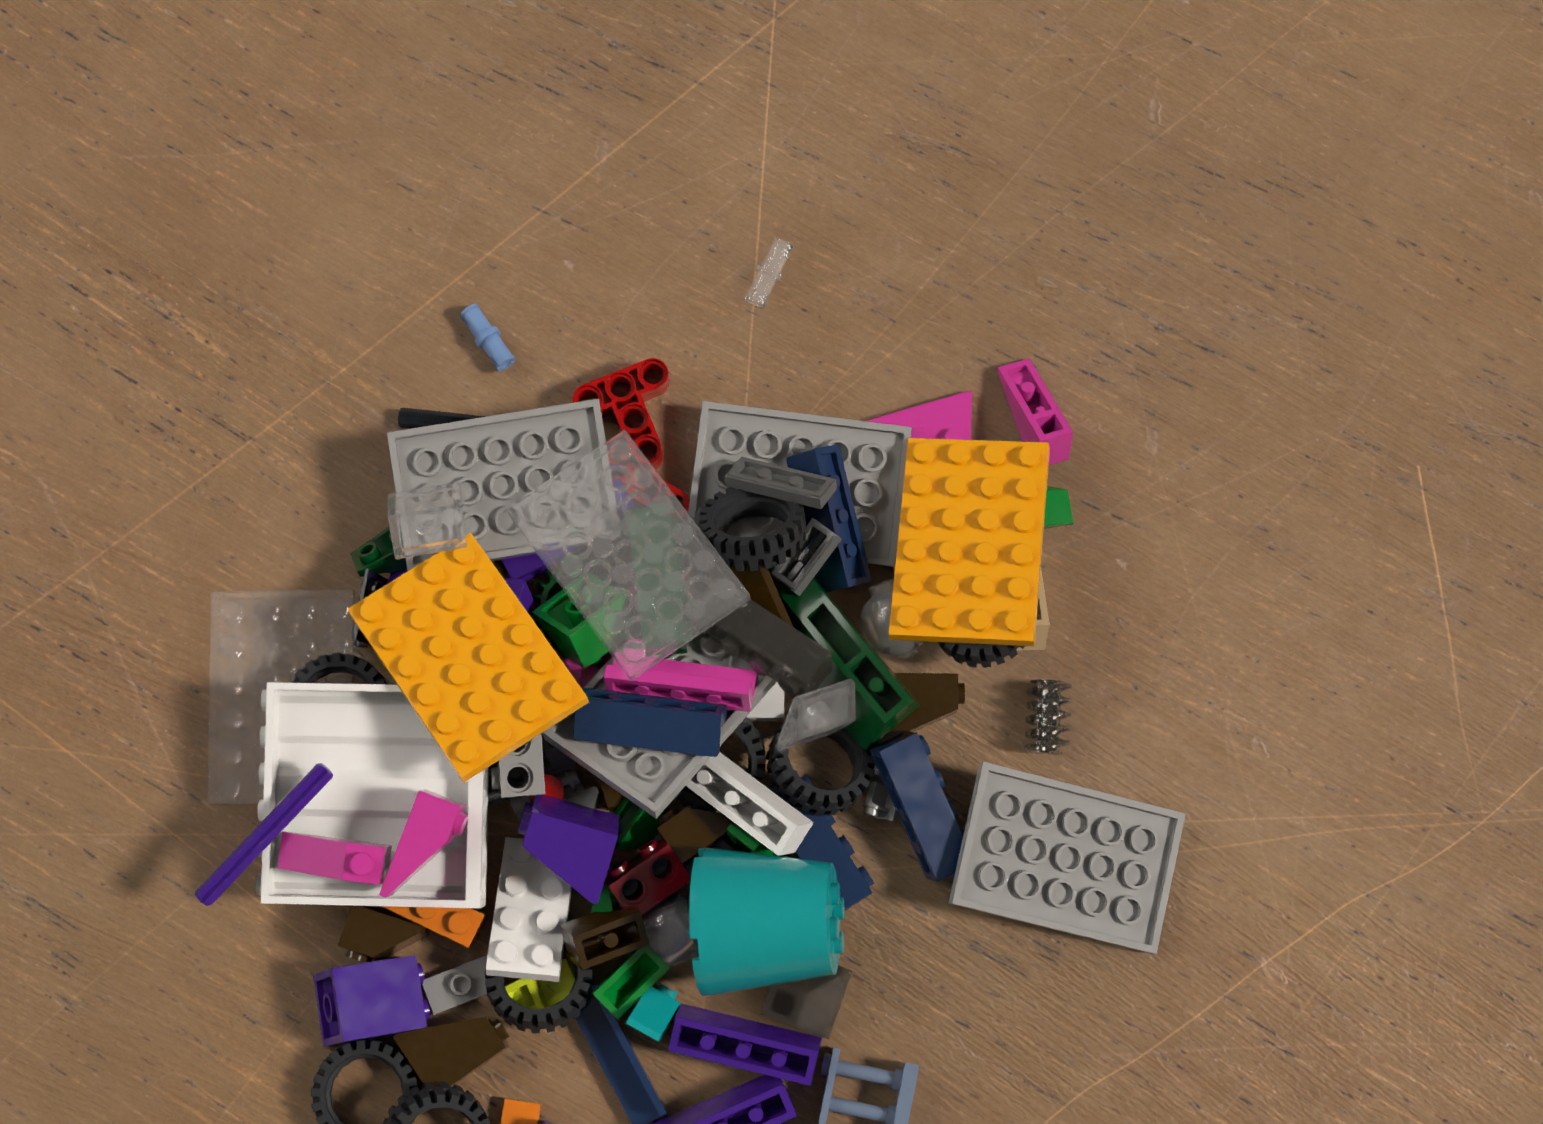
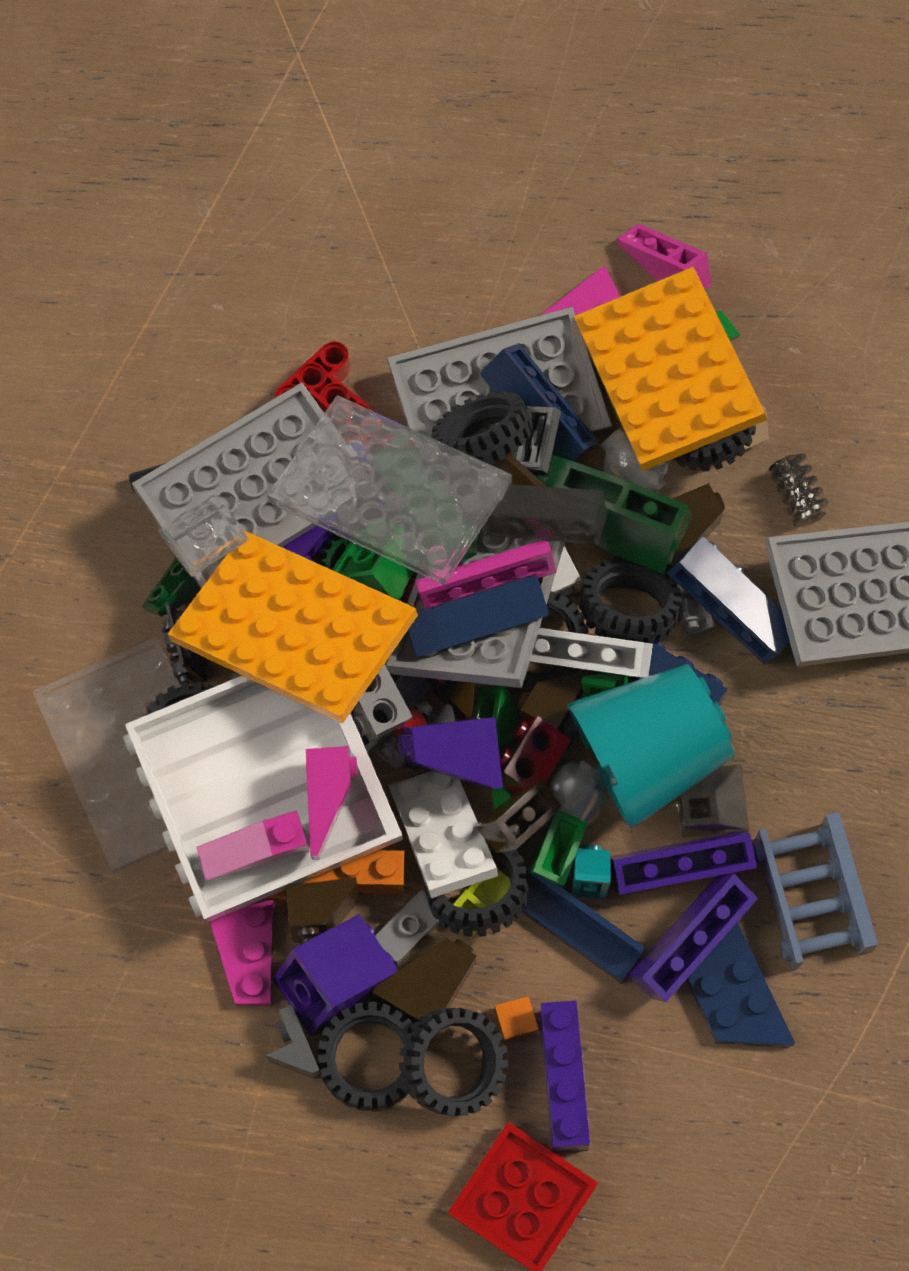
camera: 25 degrees left, 10 degrees down
(264, 834) = (181, 855): dark purple axle -> none
(298, 944) = (247, 952): none -> dark pink wing
(301, 1063) = (298, 1054): none -> dark grey slope
(487, 337) = (177, 388): medium blue pin -> none
(769, 272) = (391, 243): clear pin -> none
(781, 482) = (487, 387): dark grey tile -> none
(818, 714) = (614, 555): clear slope -> none

